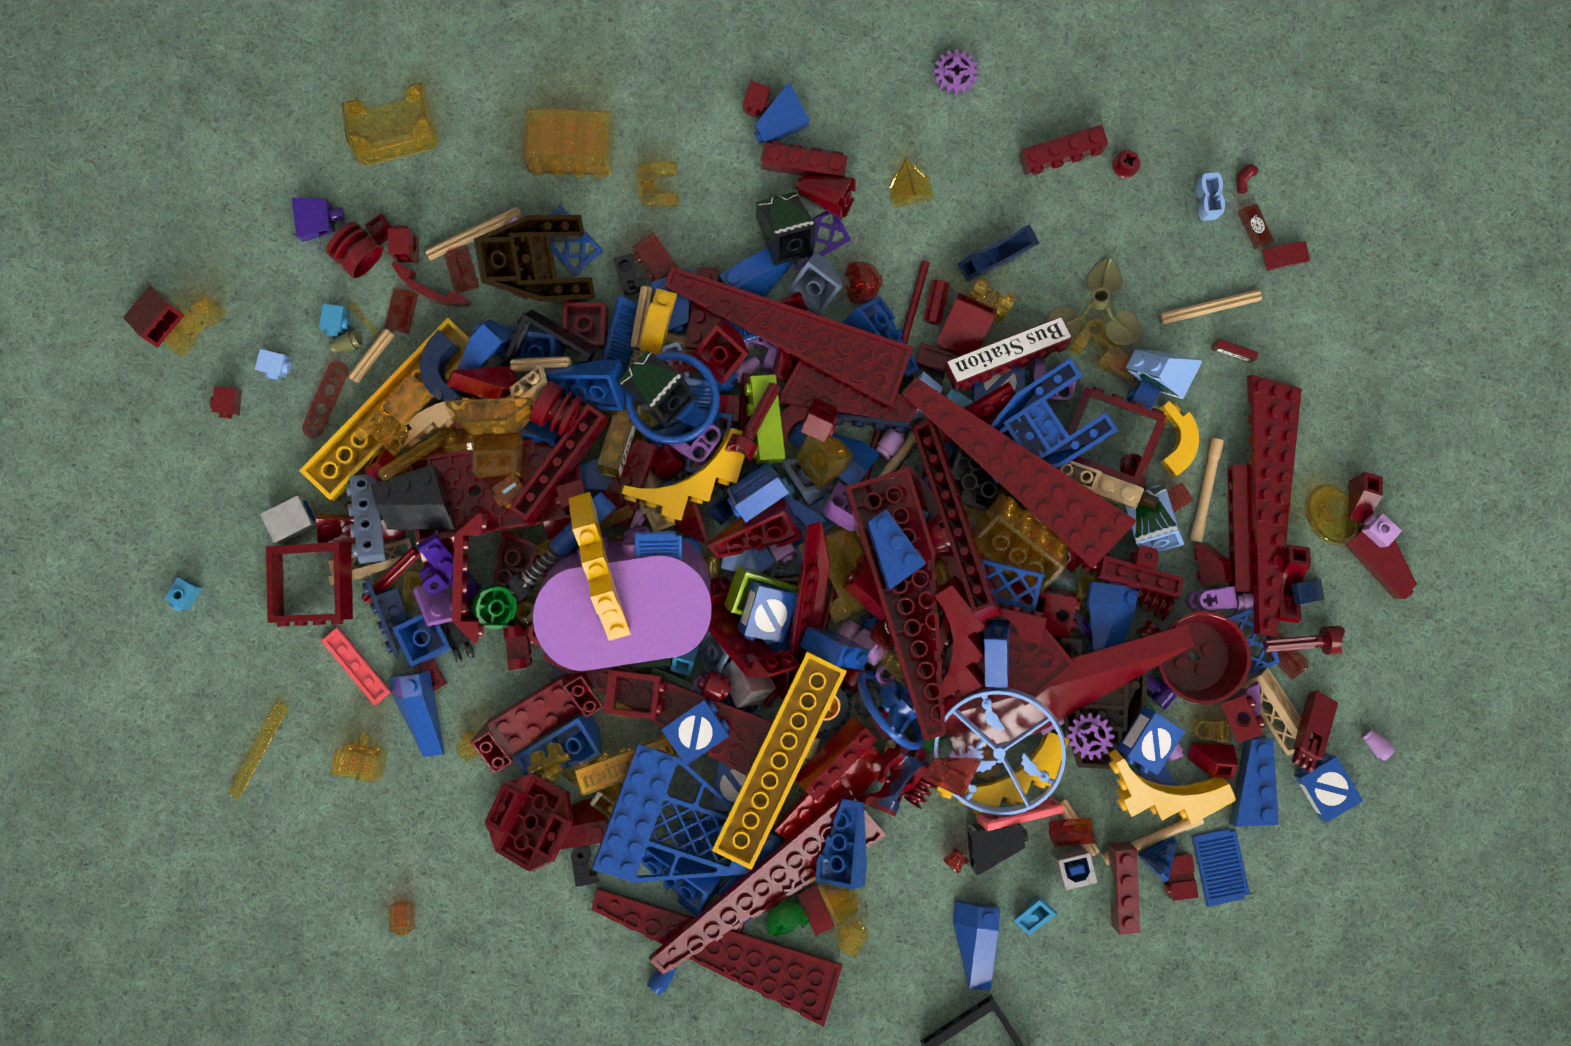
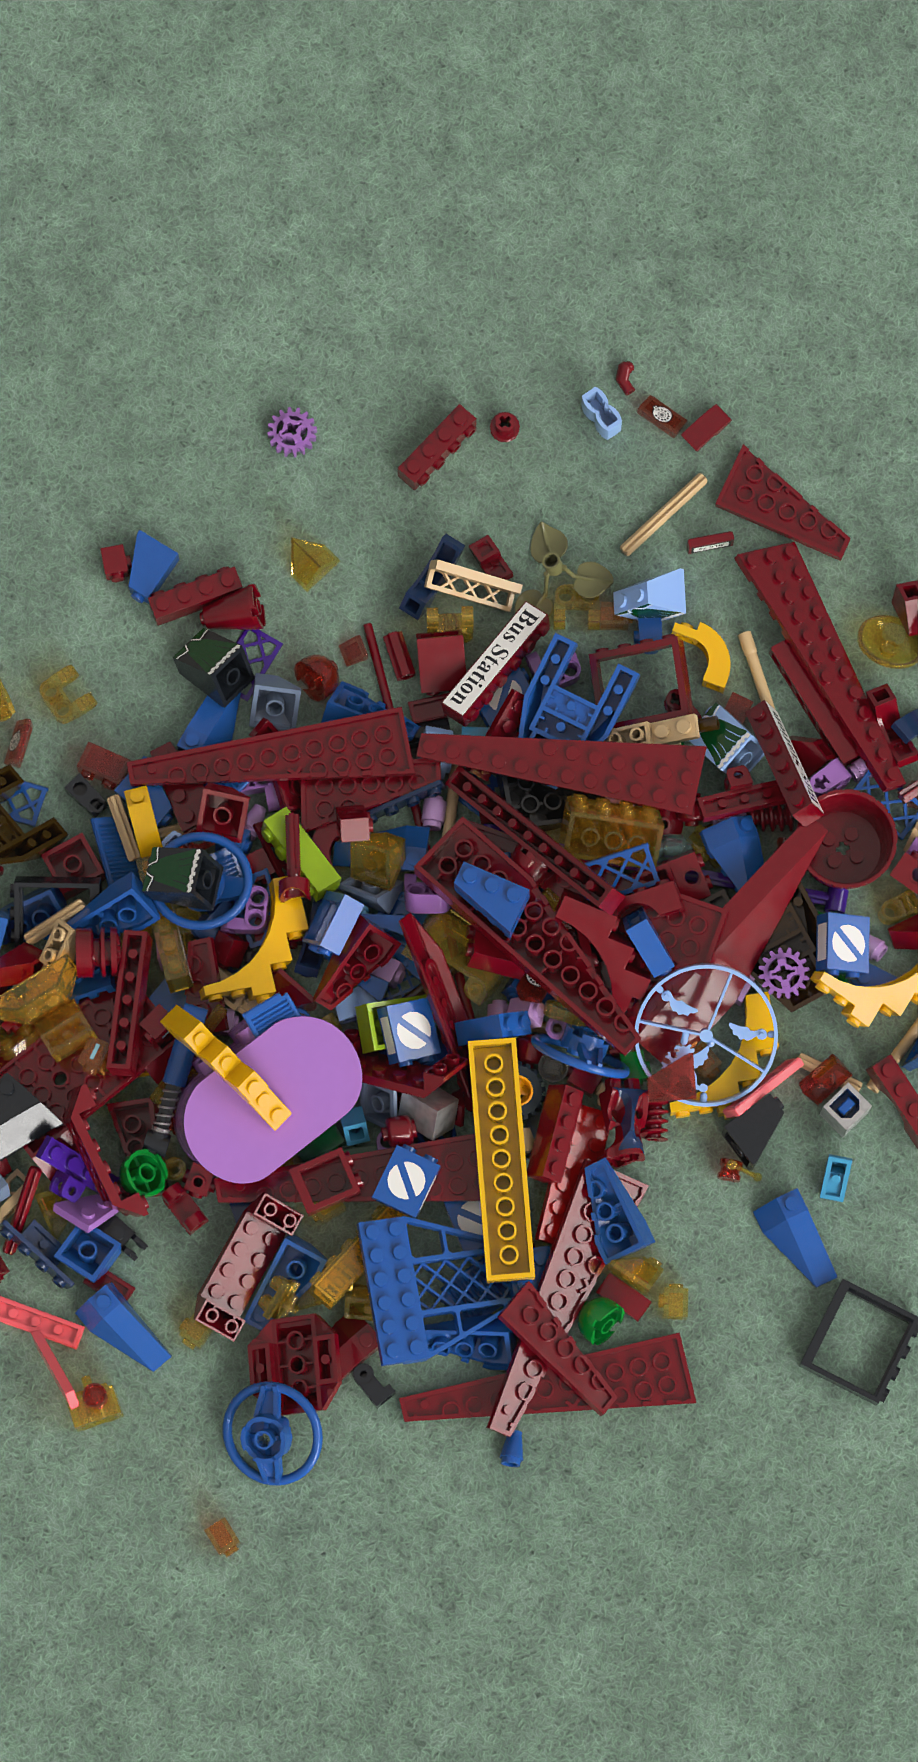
camera: 25 degrees left, 10 degrees down
(342, 718) = (55, 1369): none -> coral tile
(351, 761) = (92, 1394): none -> clear red wheel
(477, 863) = (269, 1421): none -> blue piece
(600, 202) = (19, 743): none -> clear red slope
(734, 913) = (542, 1332): none -> dark red wing
(902, 277) = (353, 651): none -> clear red slope
(960, 862) = (731, 1164): none -> clear yellow hinge
(1031, 272) = (472, 576): none -> tan fence
(1052, 266) = (490, 559): none -> dark red slope
(1190, 569) = (784, 763): none -> dark red brick
(1302, 347) = (772, 503): none -> dark red wing

